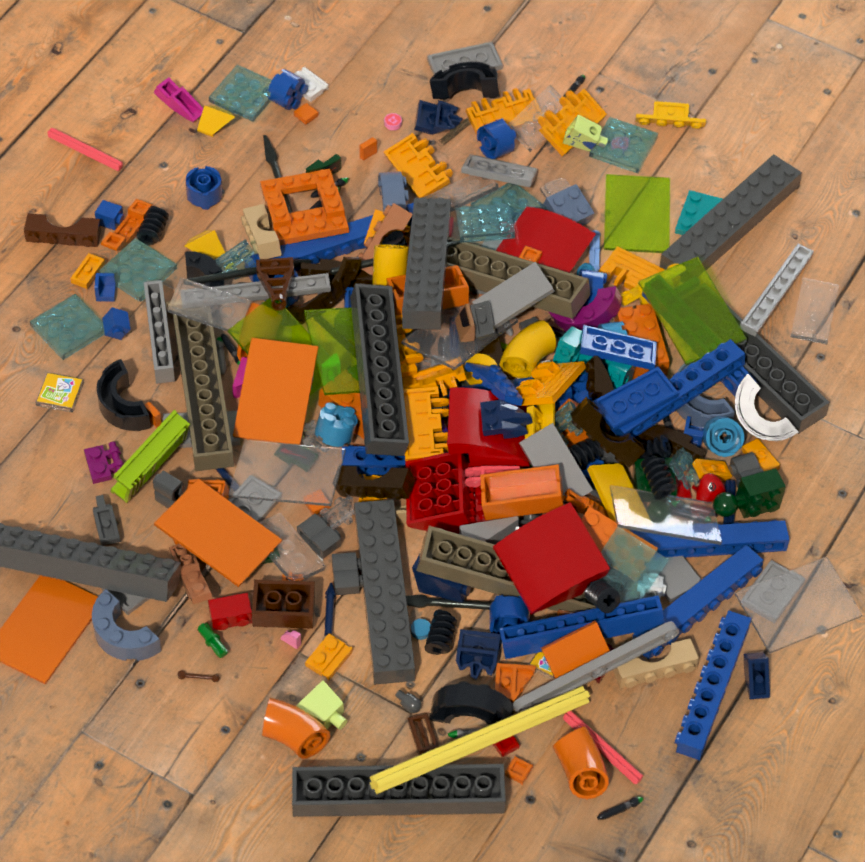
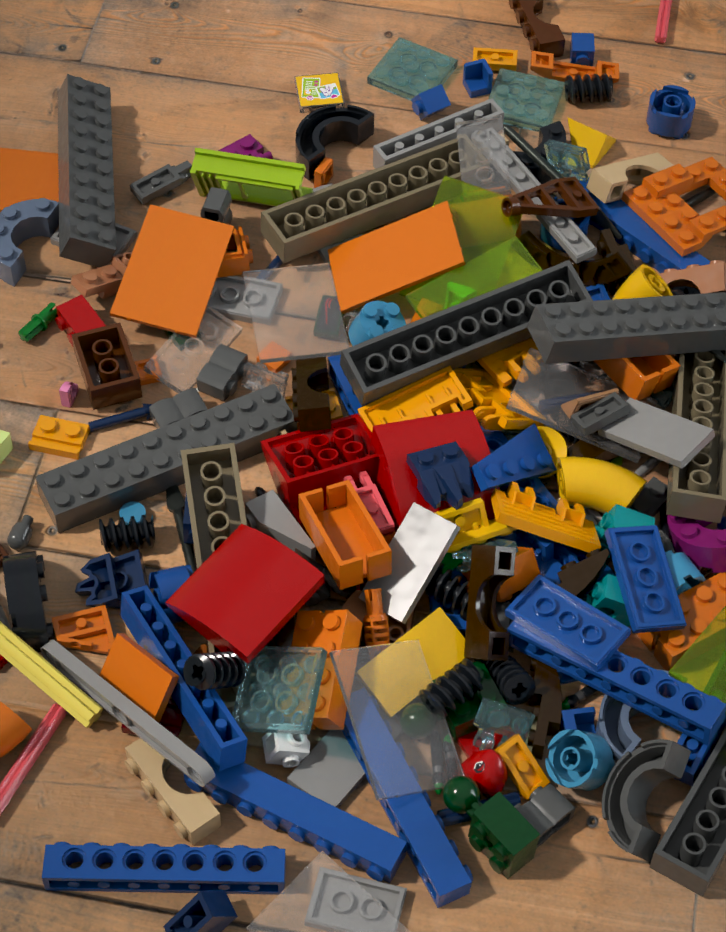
camera: 70 degrees right, 0 degrees up
(763, 456) = (581, 829): light orange plate -> none

